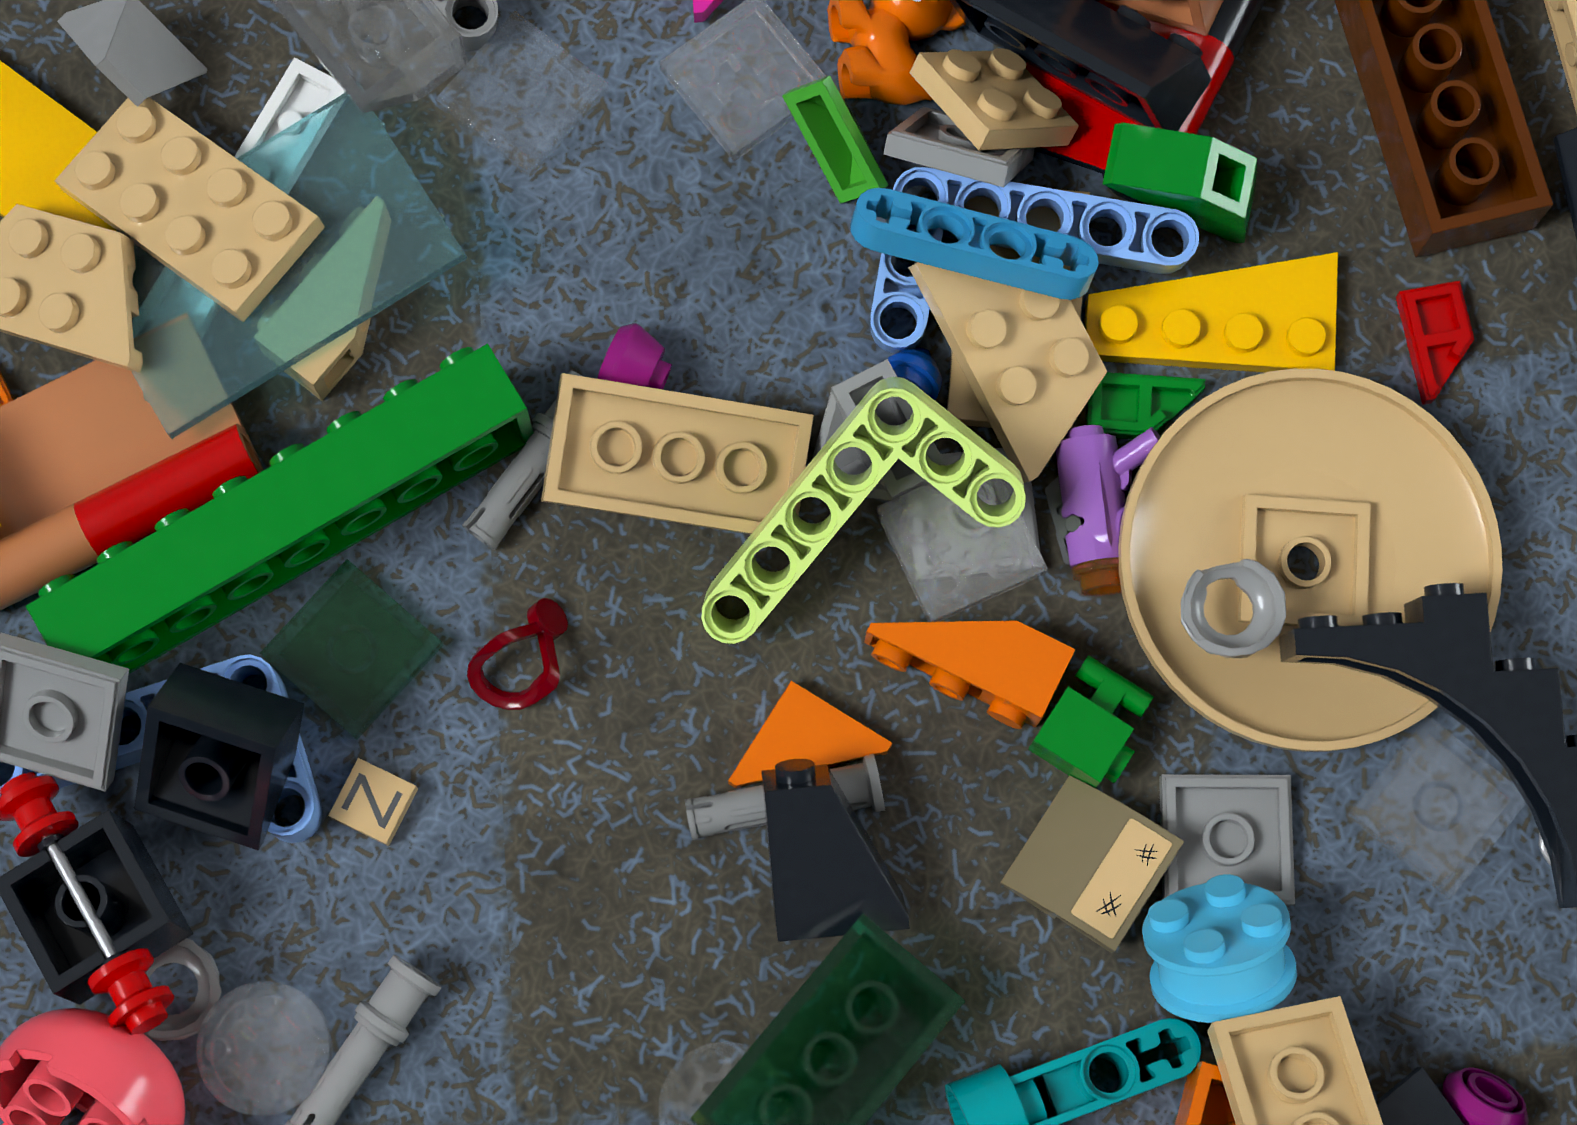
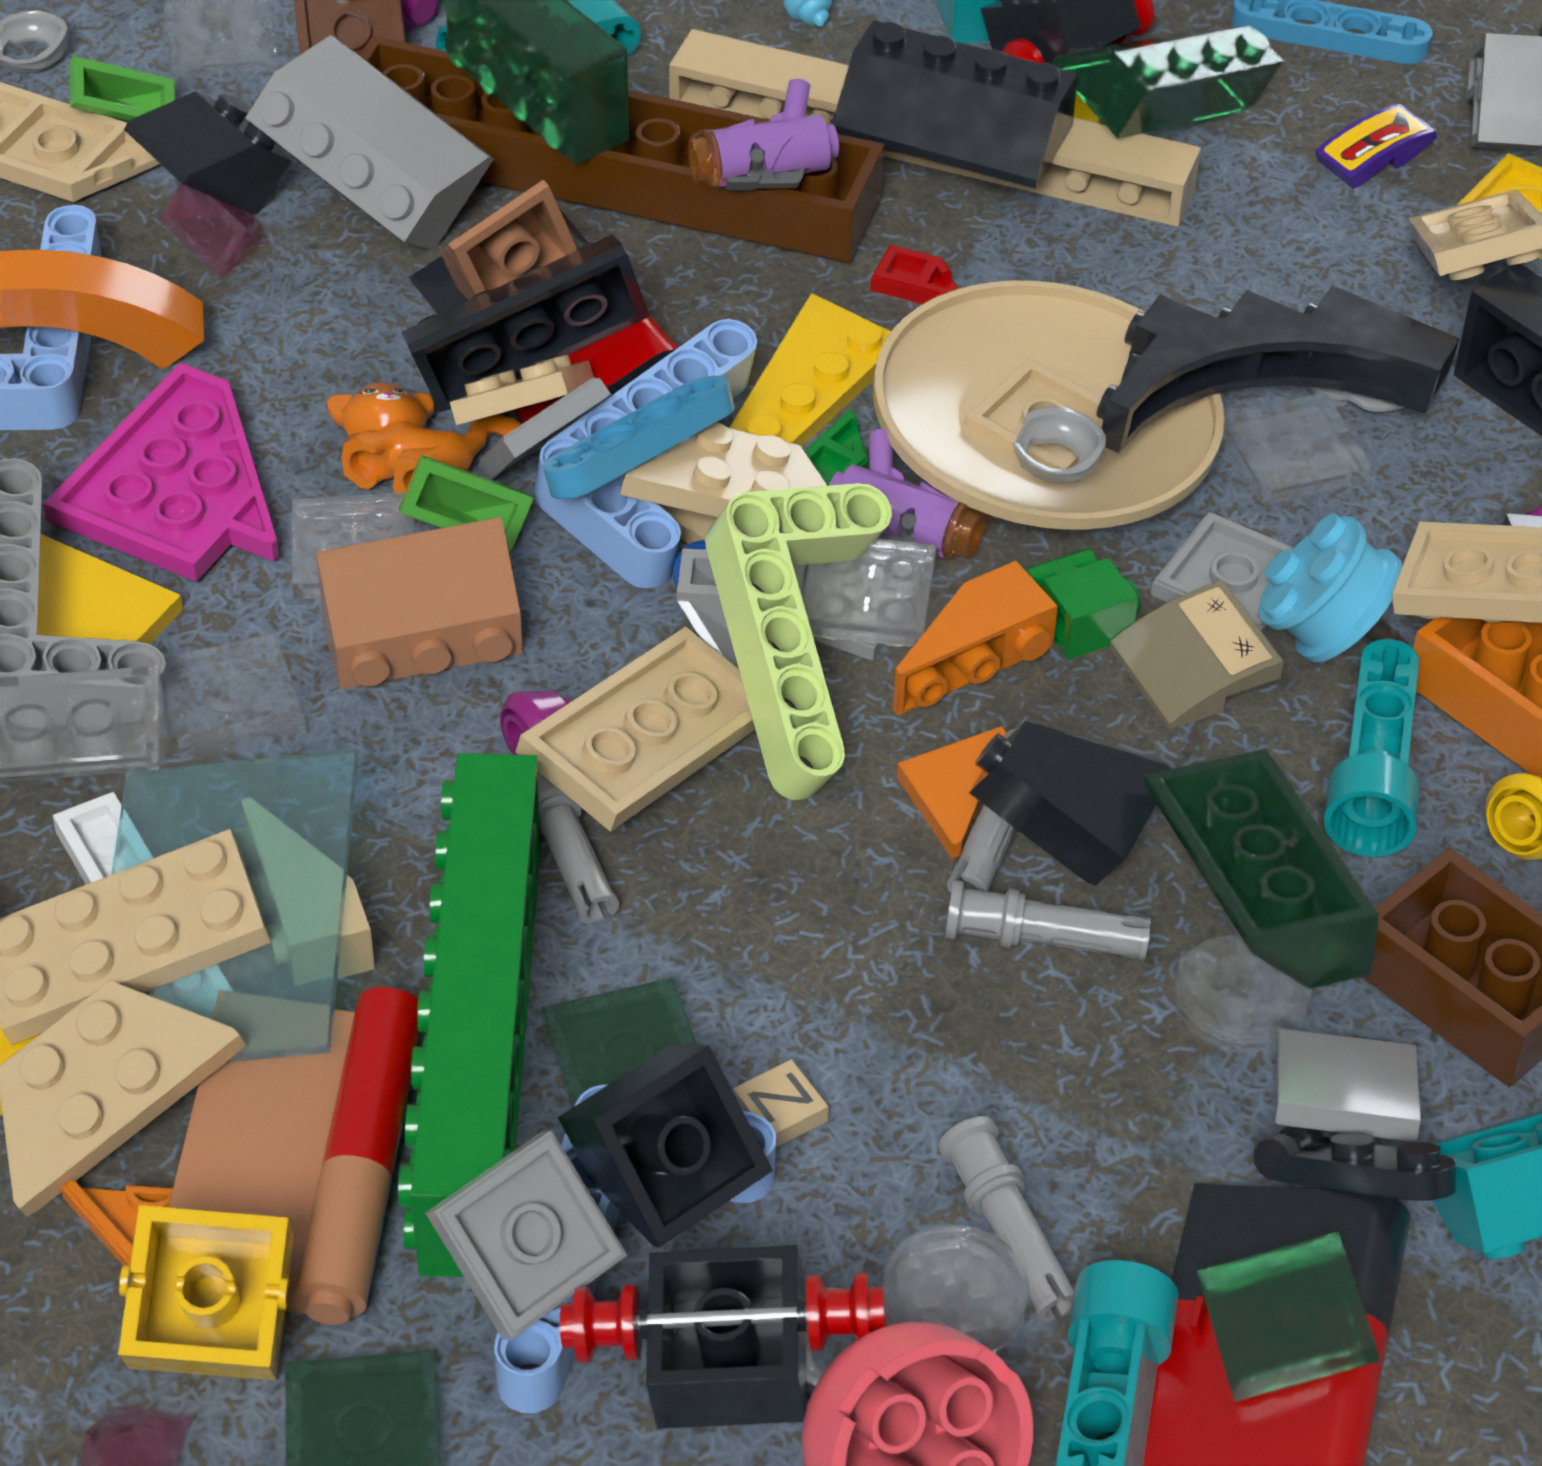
camera: 55 degrees left, 30 degrees down
(547, 623) = (771, 933): dark red piece -> none
(675, 876) = (1014, 919): none -> light grey pin
(685, 186) = (419, 603): none -> nougat slope
(1185, 174) = (686, 302): green slope -> none
(1435, 115) = (767, 152): none -> medium lavender piece

